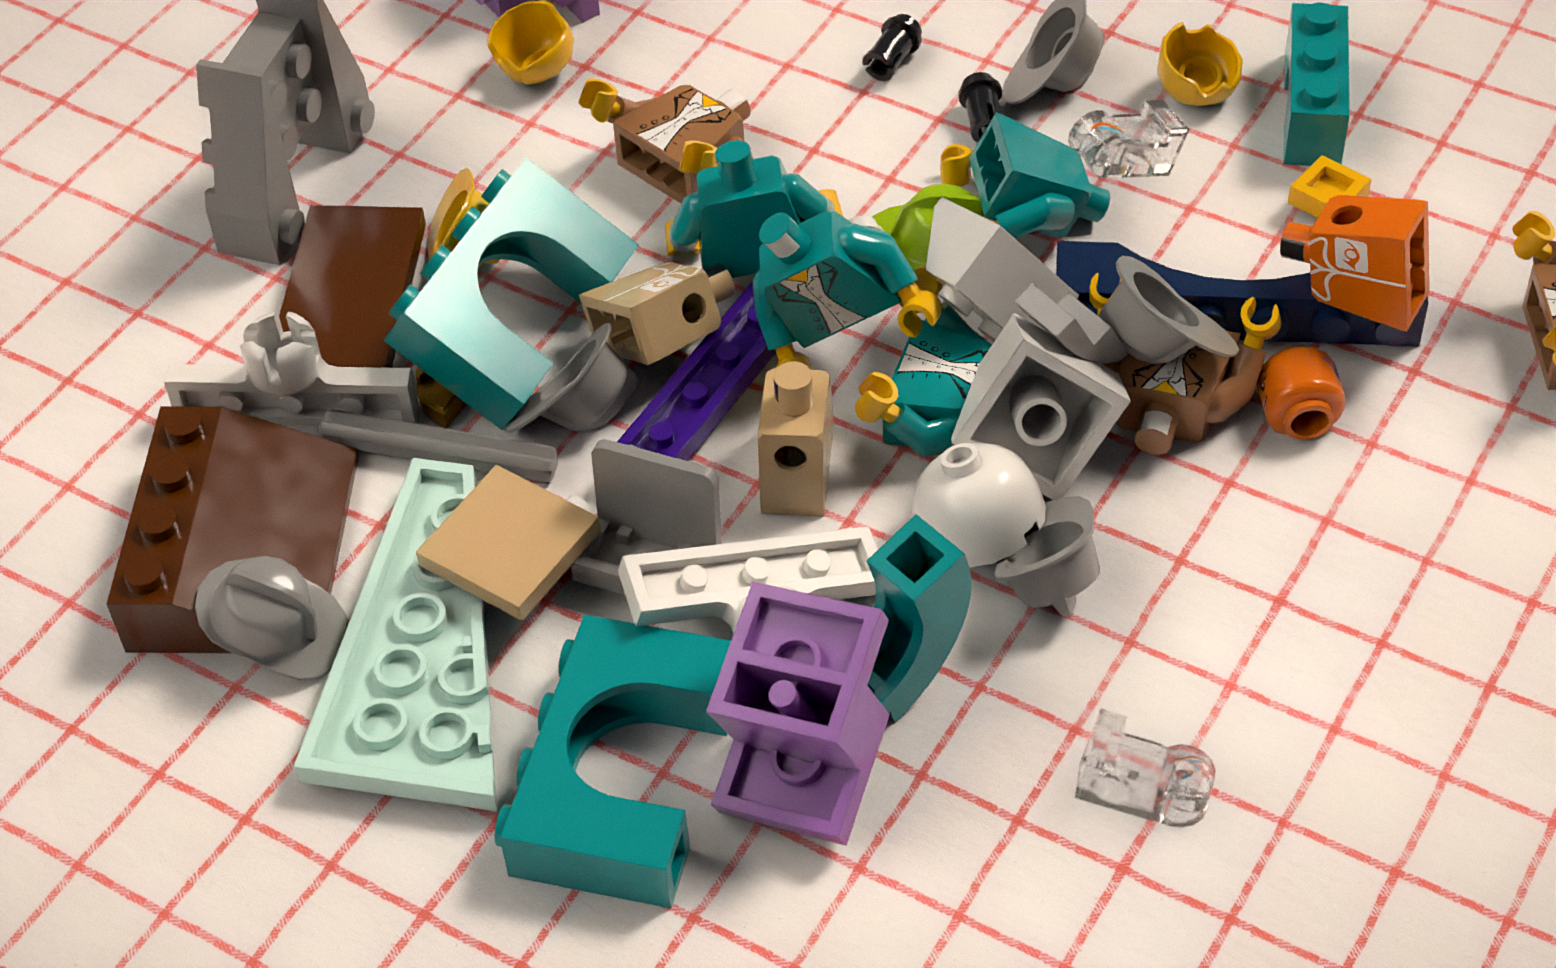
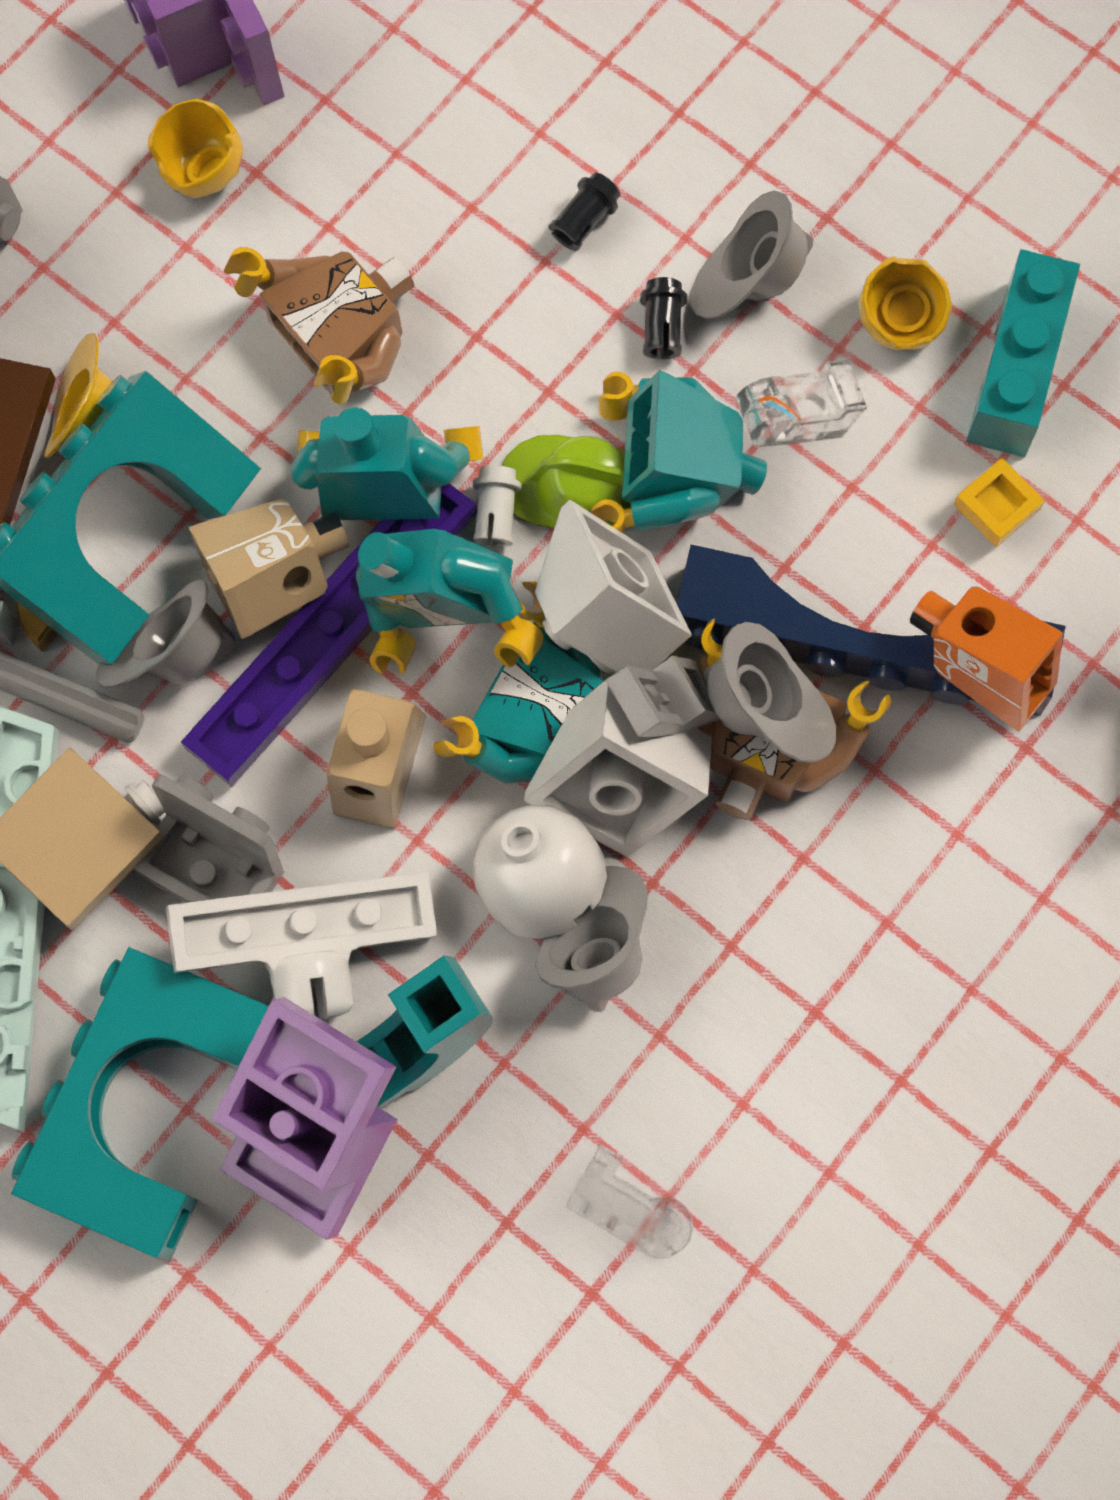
camera: 10 degrees right, 25 degrees up
(1301, 392) = (898, 771): orange head -> none

